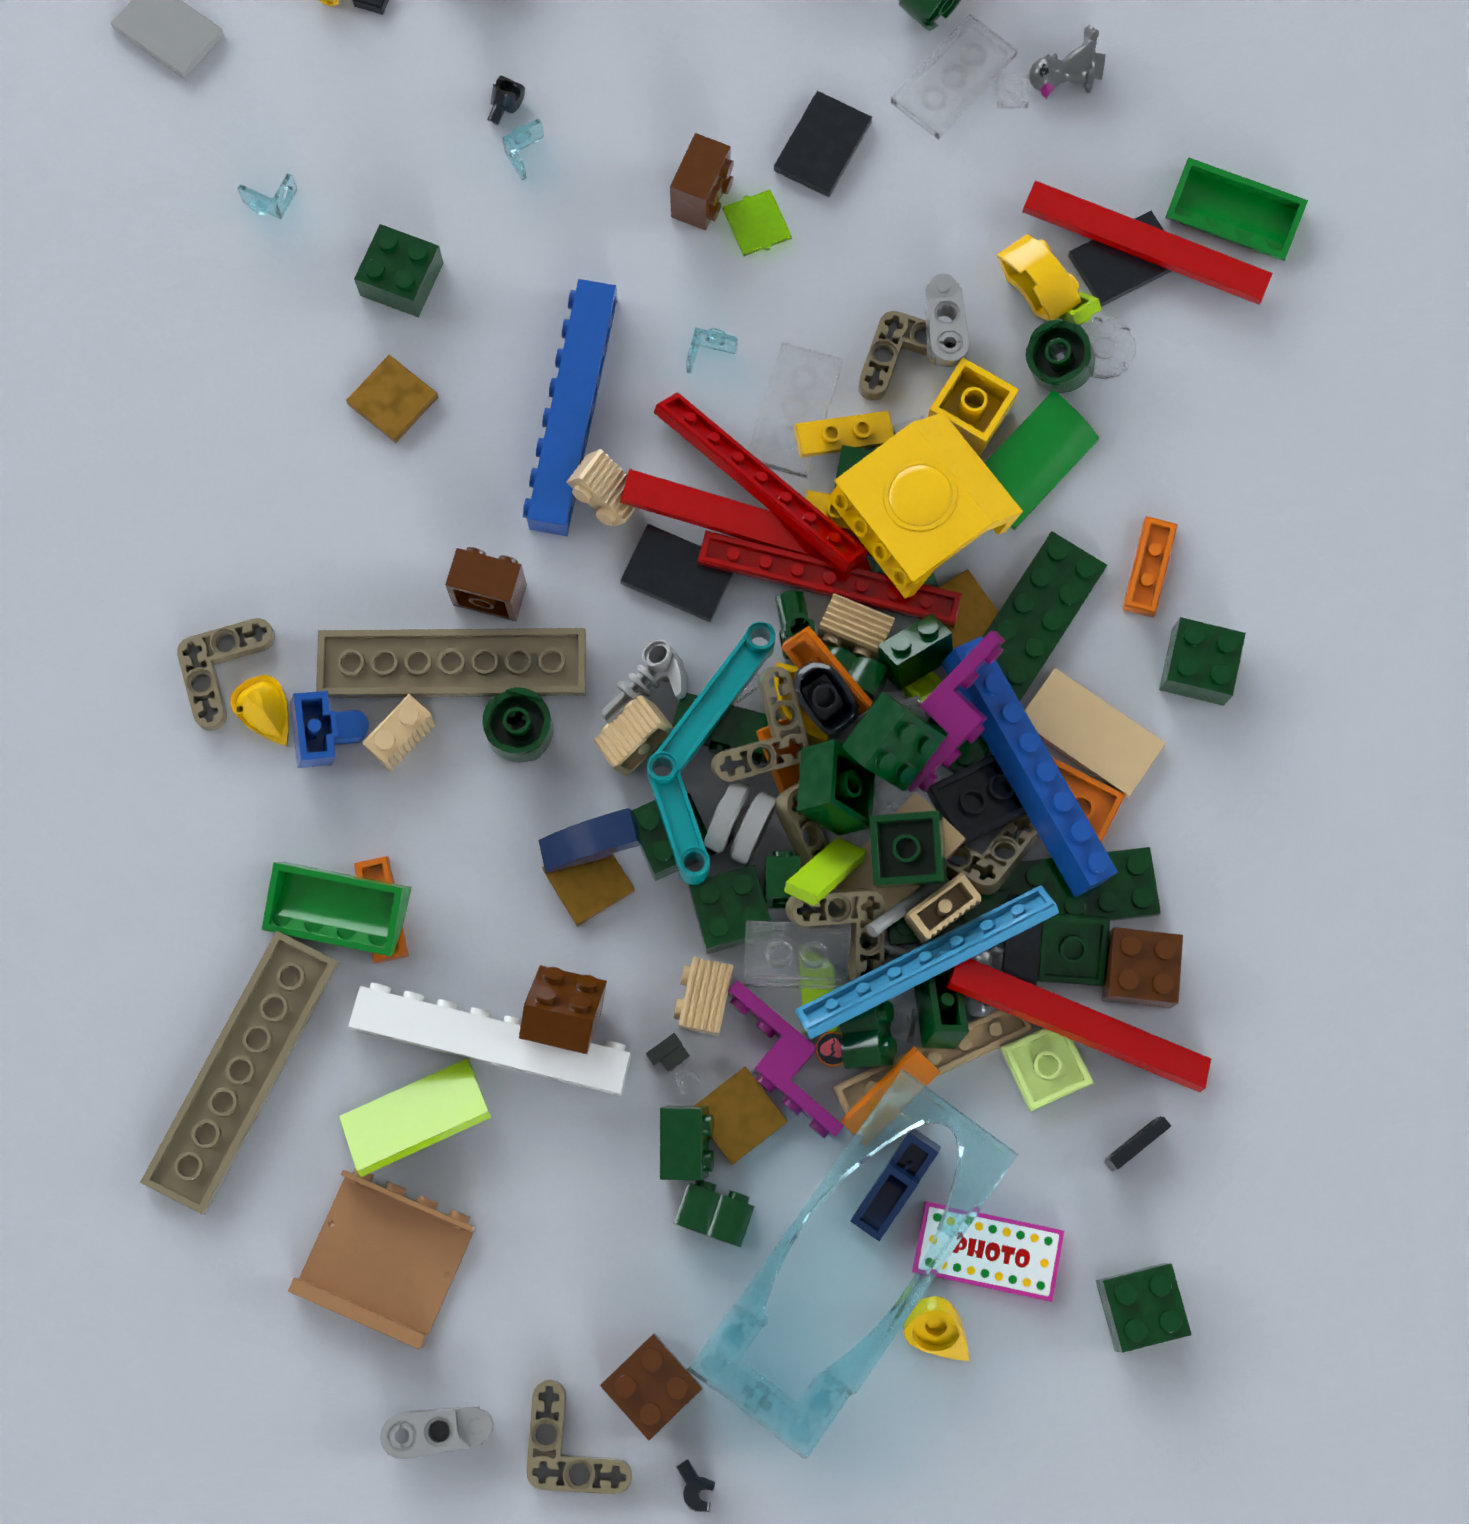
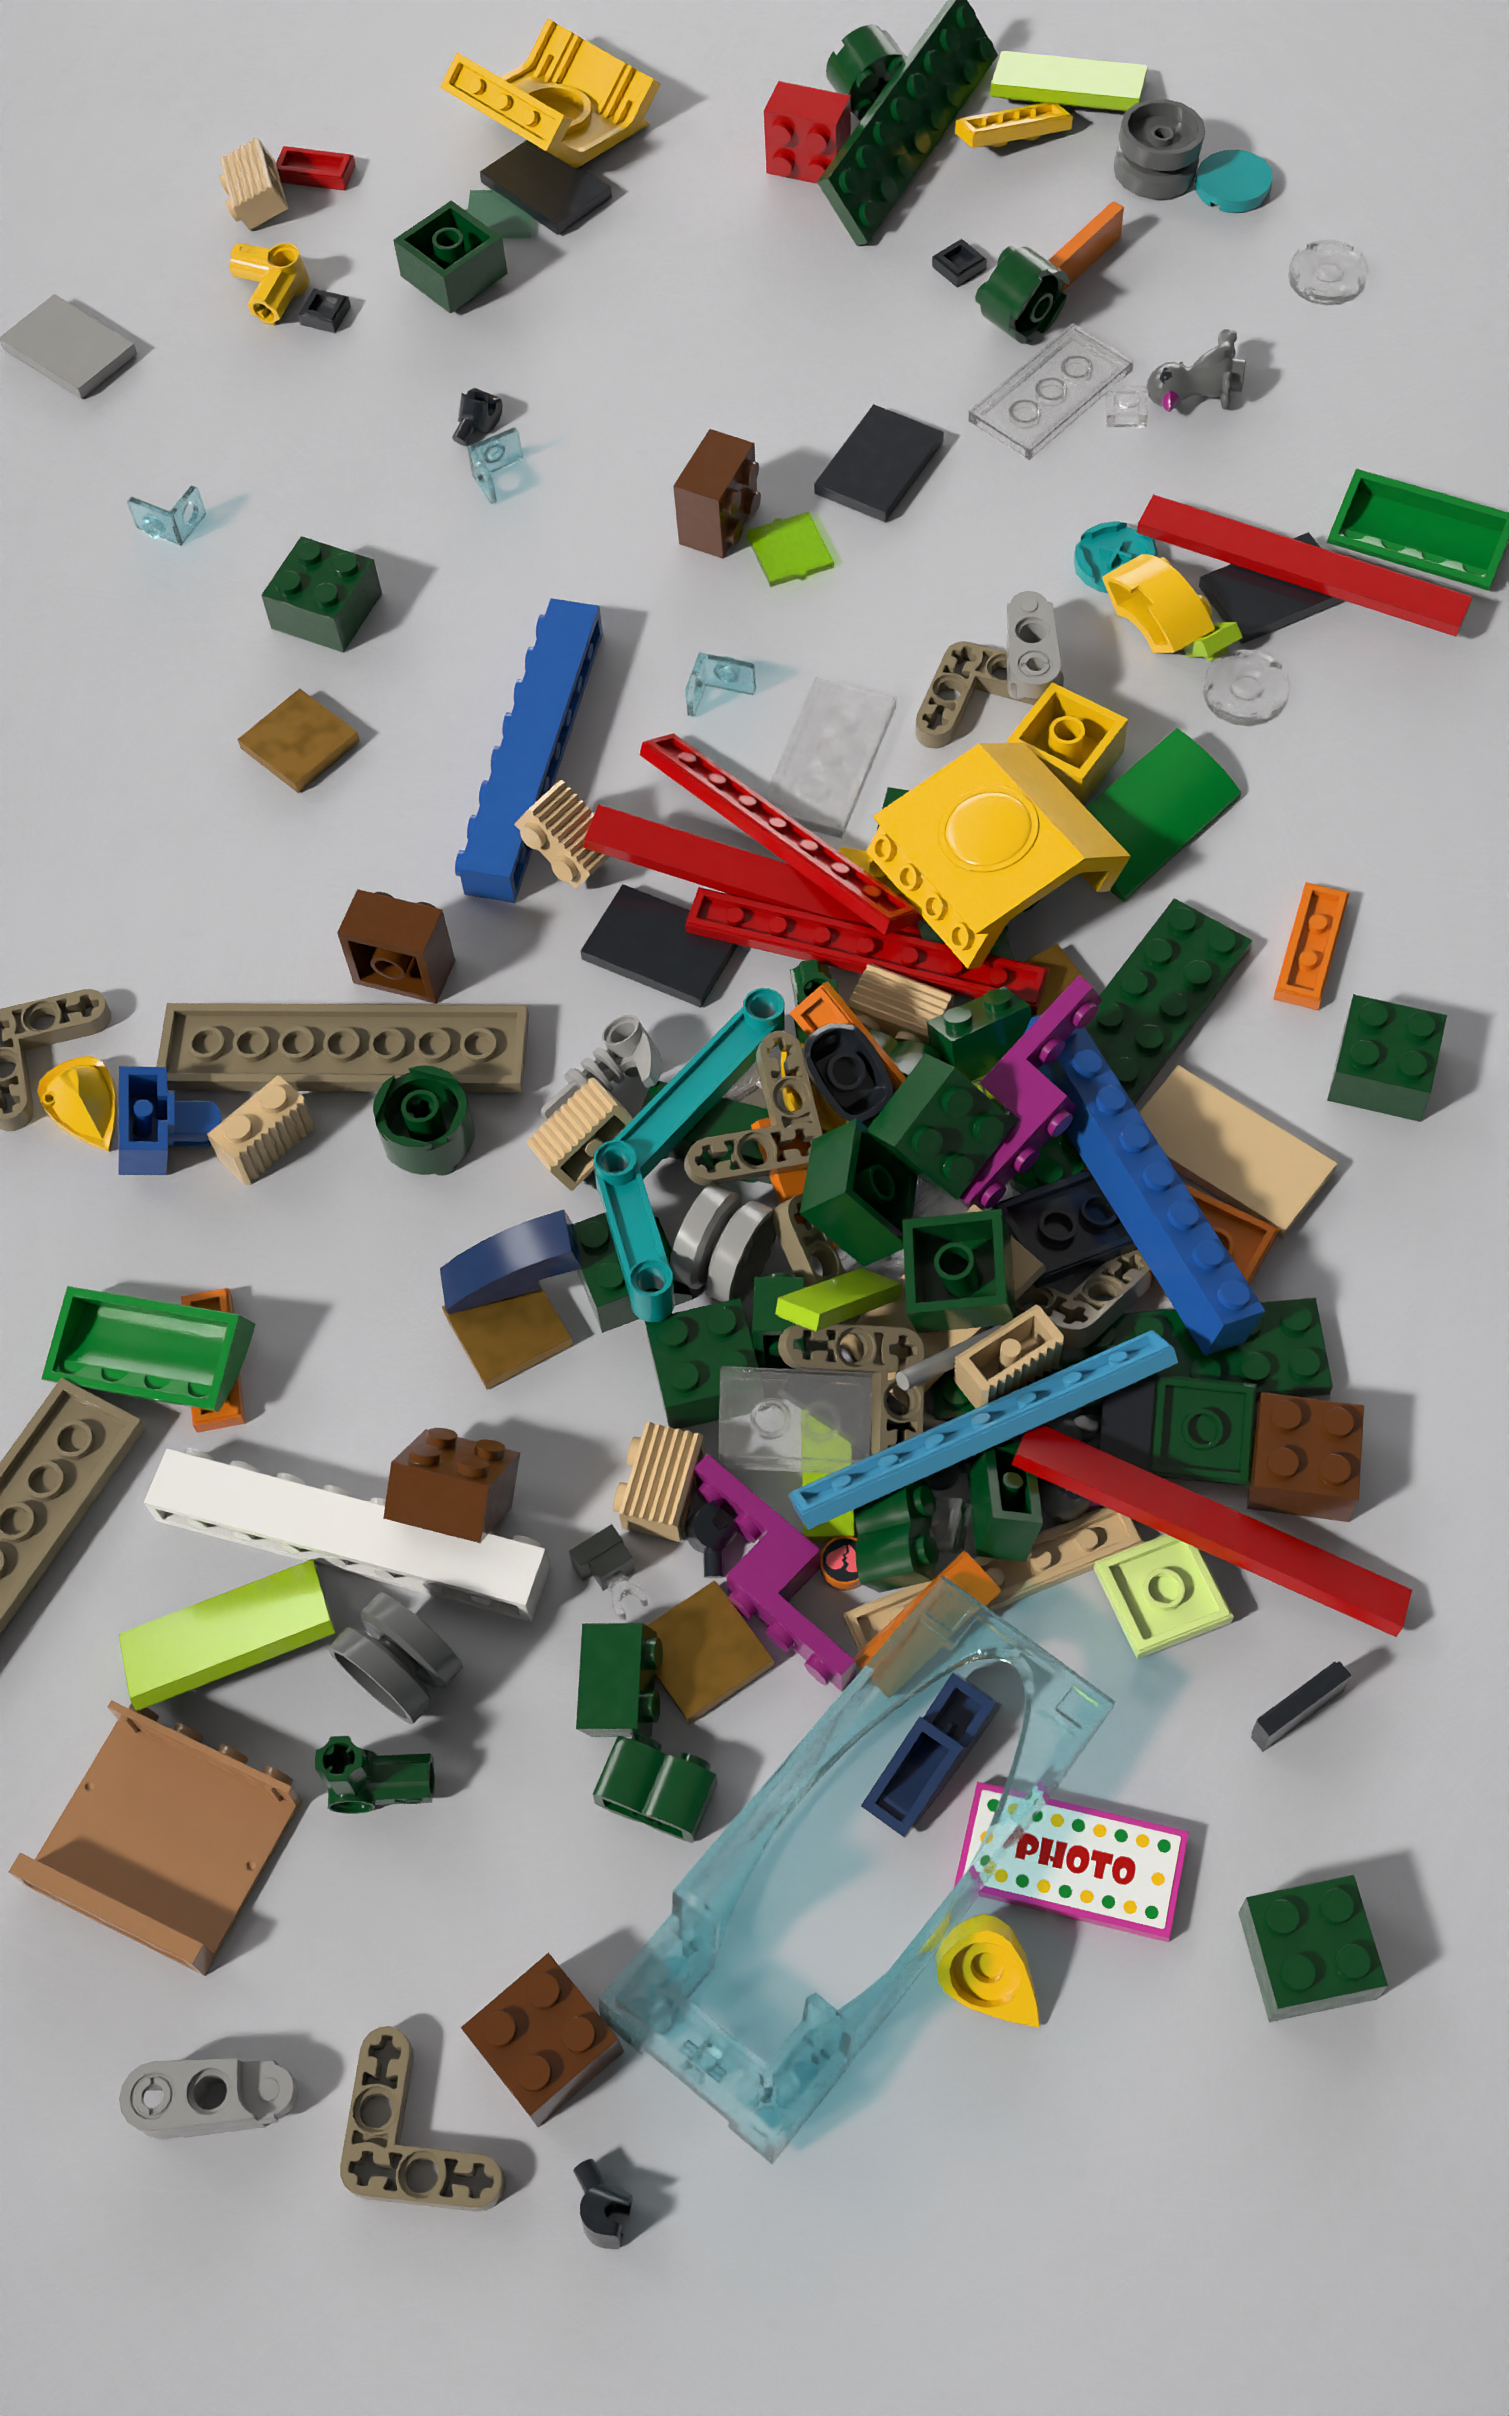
camera: 10 degrees right, 15 degrees down
(519, 1214) = (362, 1779): none -> dark green piece
(532, 1136) = (395, 1657): none -> dark grey wheel
(742, 1037) = (709, 1539): none -> black piece
(829, 435) = (867, 780): yellow plate -> none
(1001, 226) = (1107, 548): none -> teal tile
(1065, 338) = (1186, 686): dark green brick -> none

